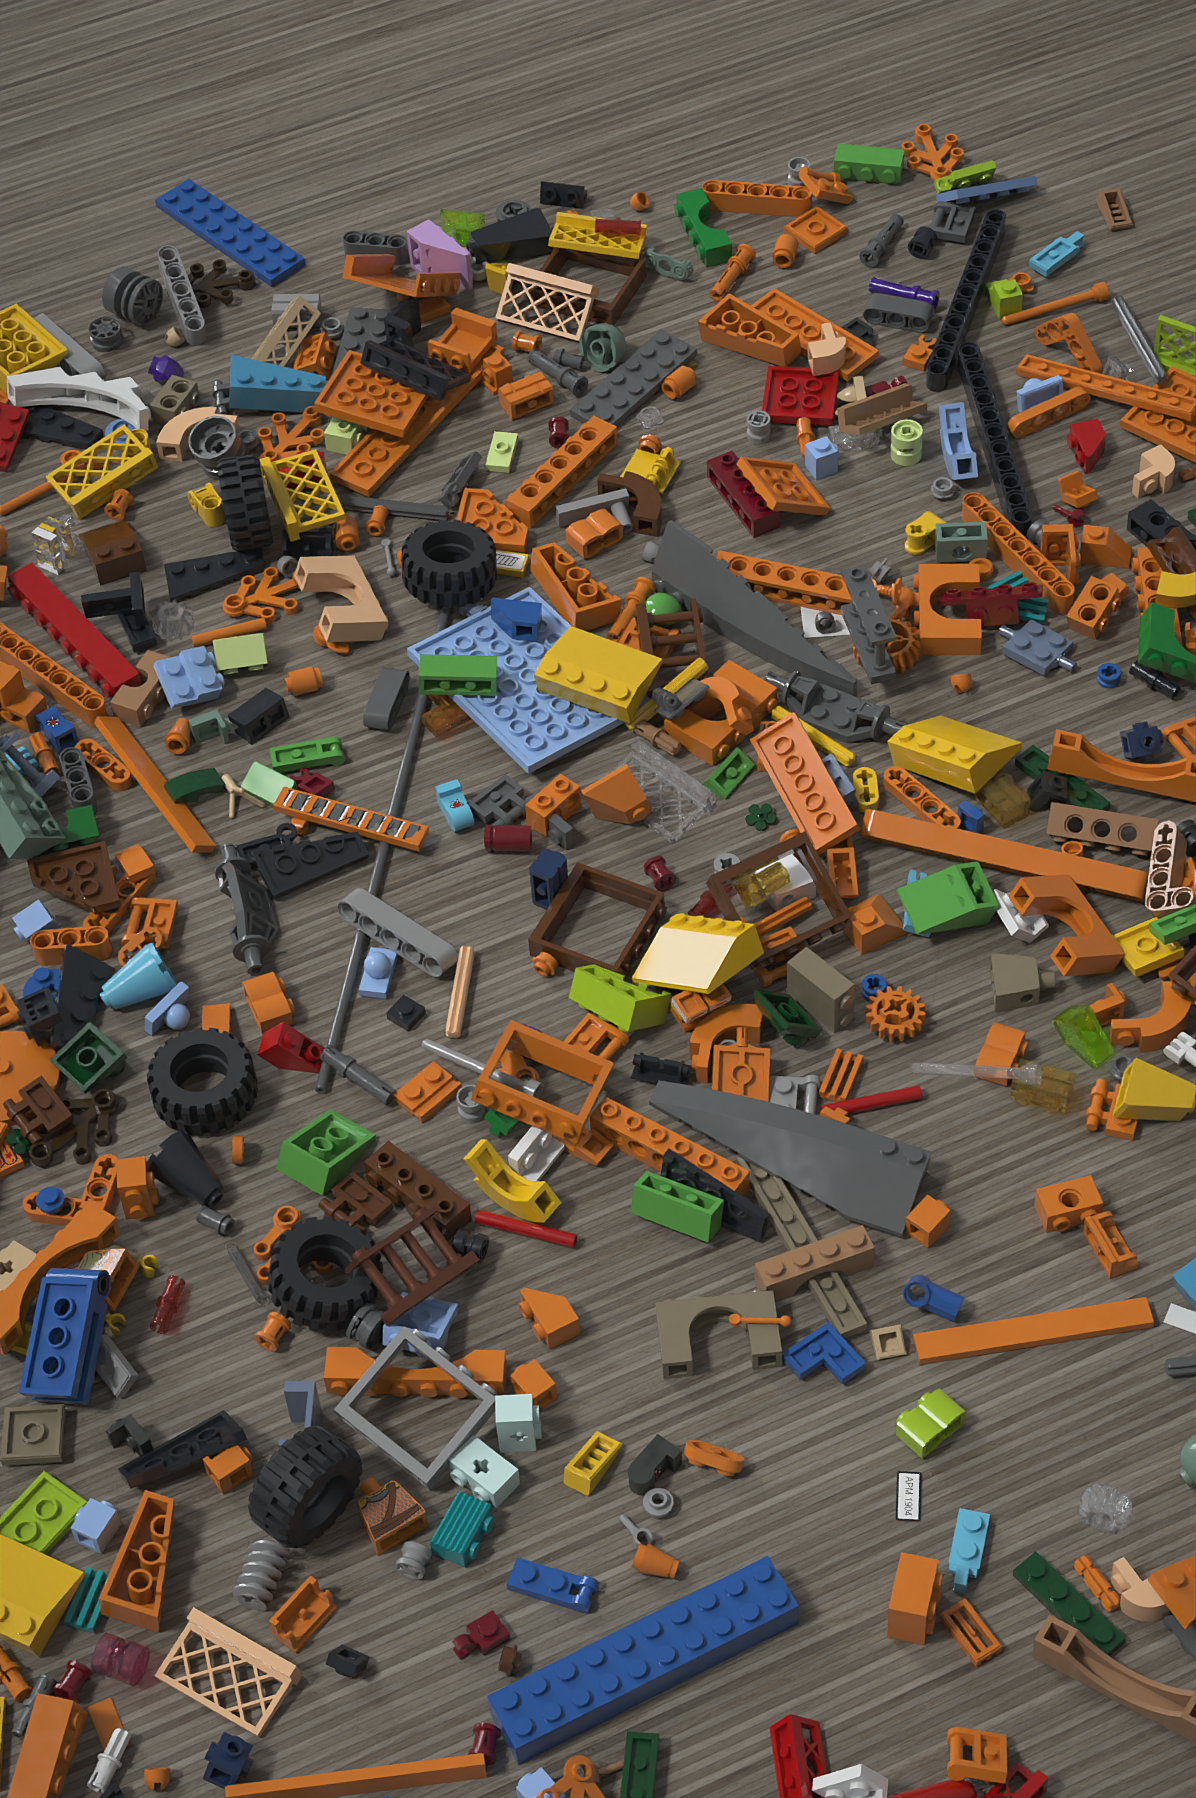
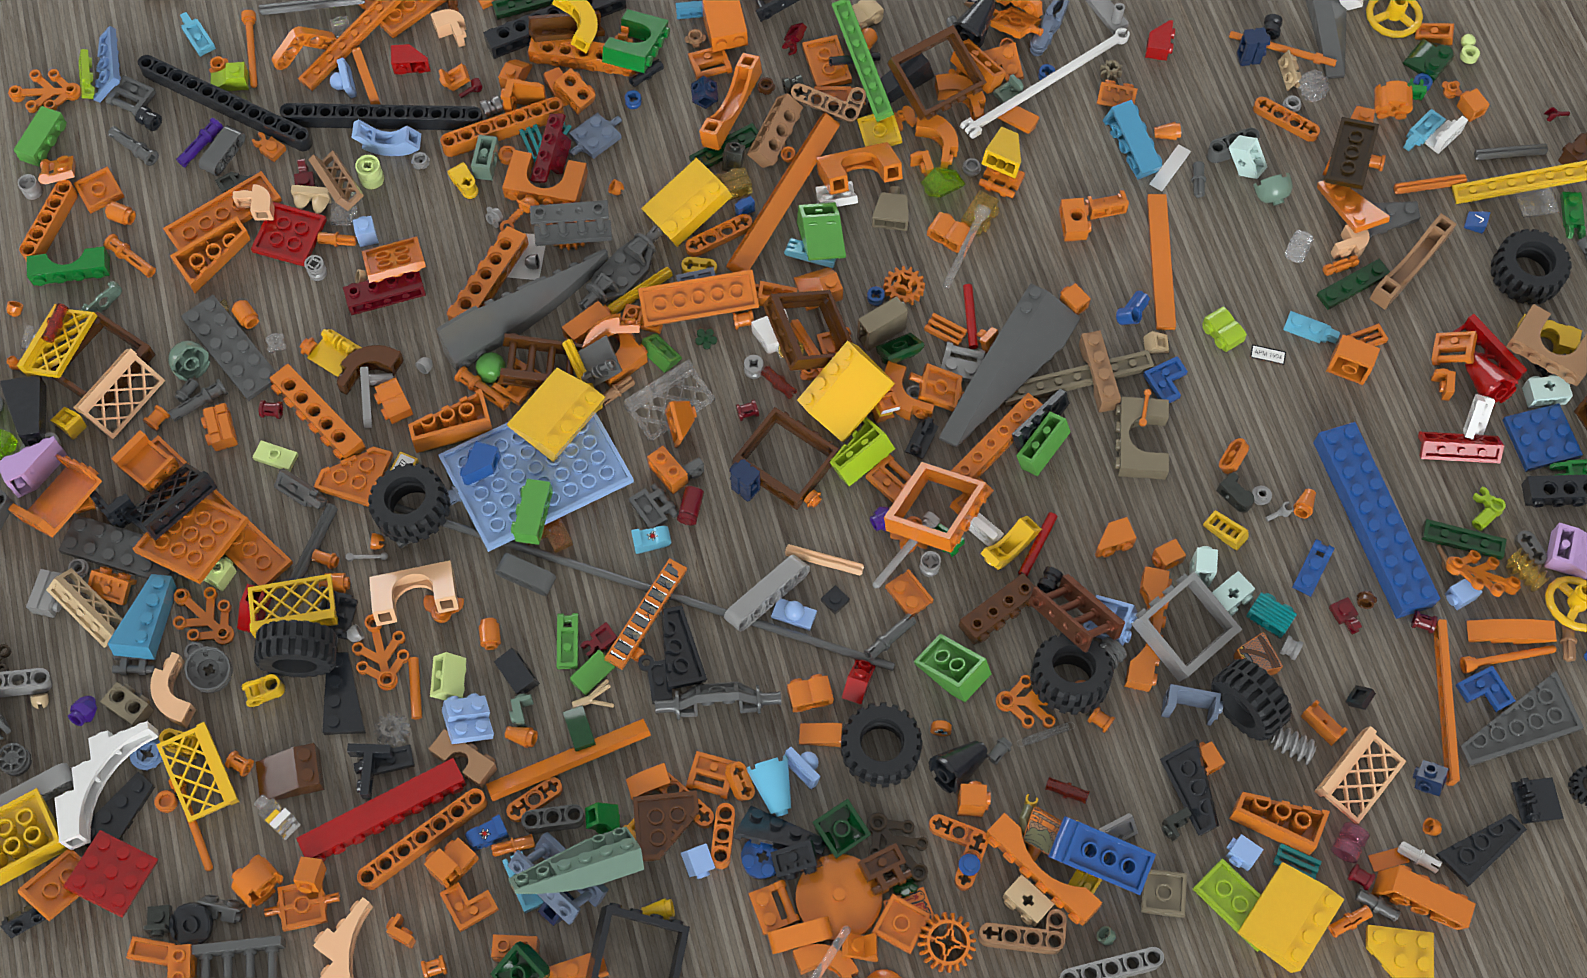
camera: 85 degrees left, 15 degrees up
(361, 1198) = (998, 647): reddish brown plate -> none
(496, 372) = (187, 444): orange brick -> none
(911, 1754) = (1447, 382): none -> orange bracket
(1180, 810) = (766, 82): none -> reddish brown plate

